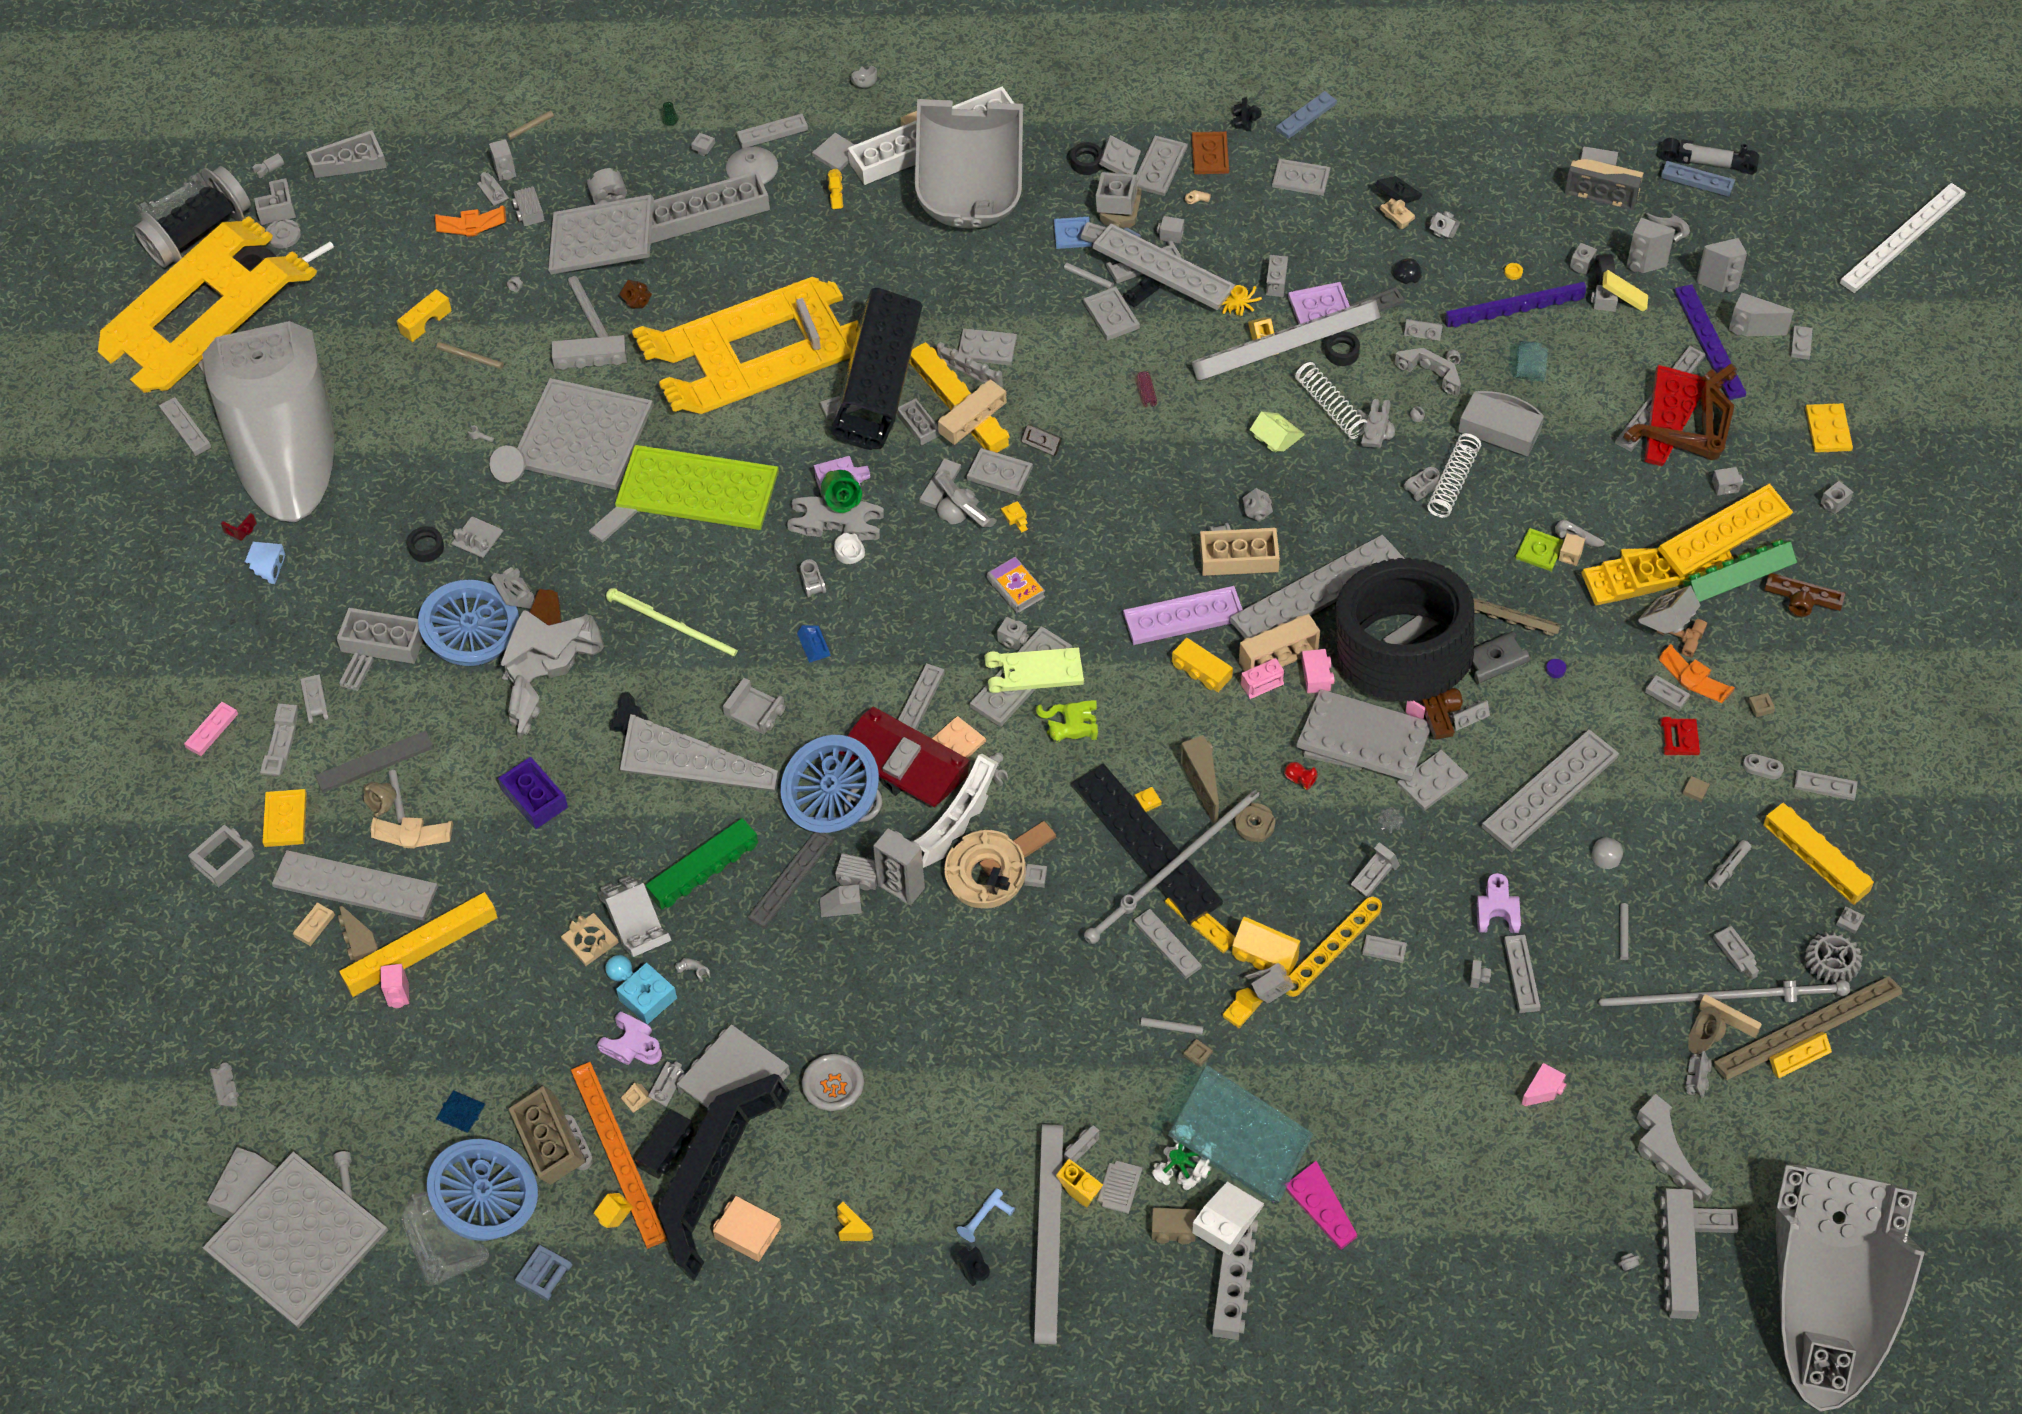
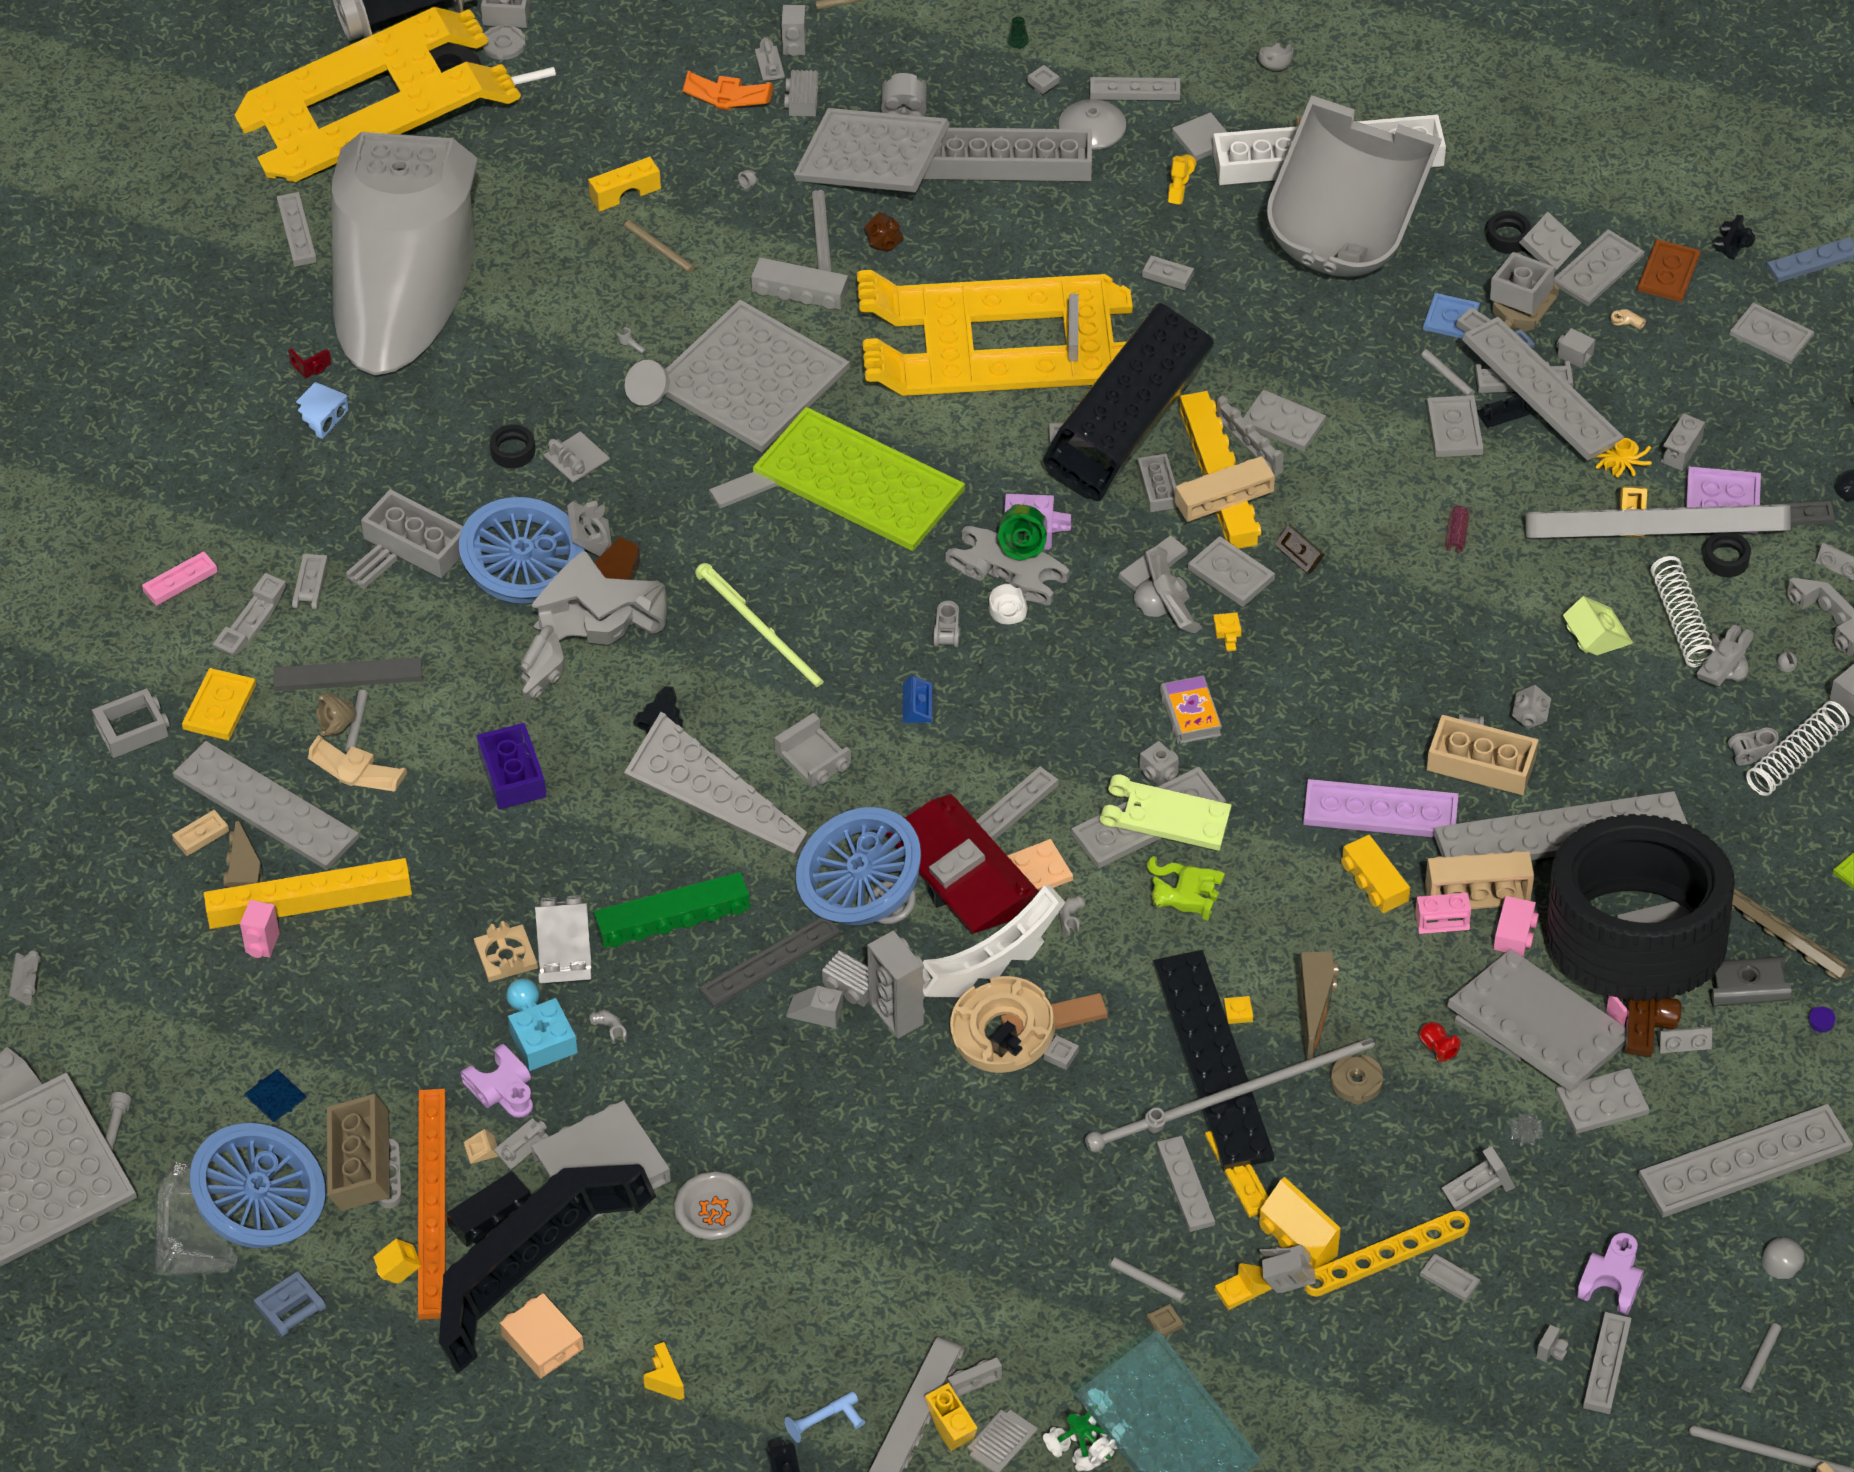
camera: 20 degrees right, 5 degrees down
(856, 261) = (1168, 272): none -> light grey plate

